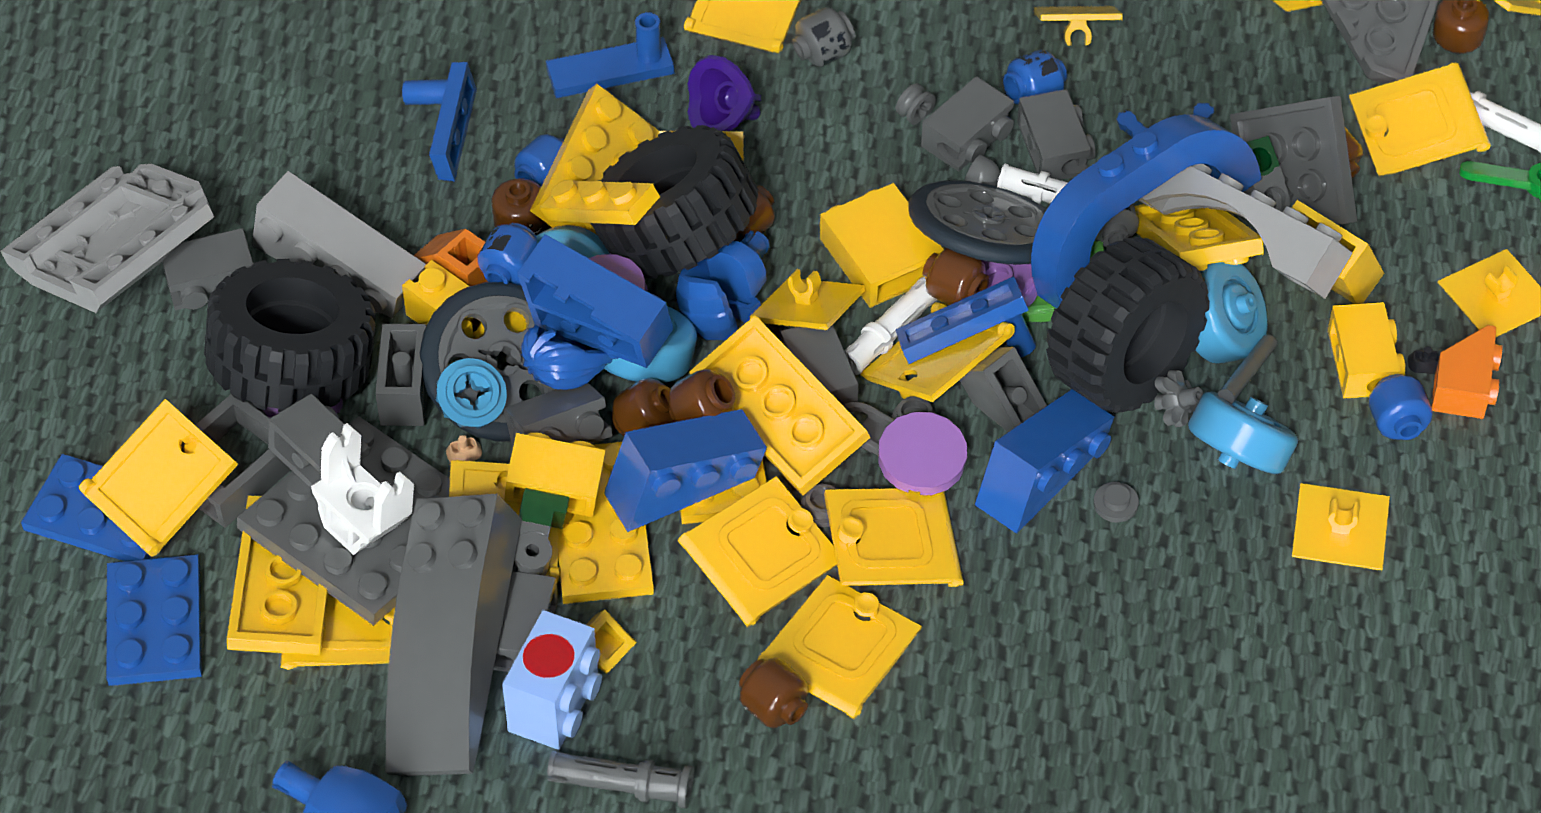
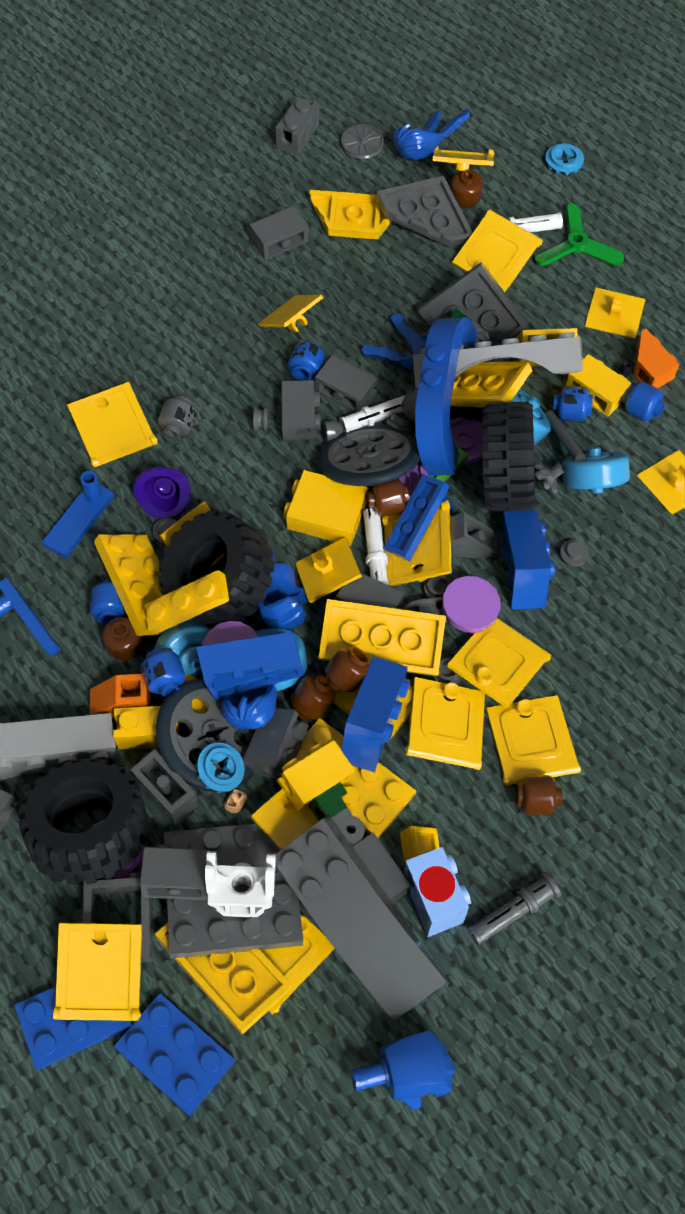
camera: 45 degrees left, 10 degrees up
(1305, 346) = (573, 403): none -> blue head

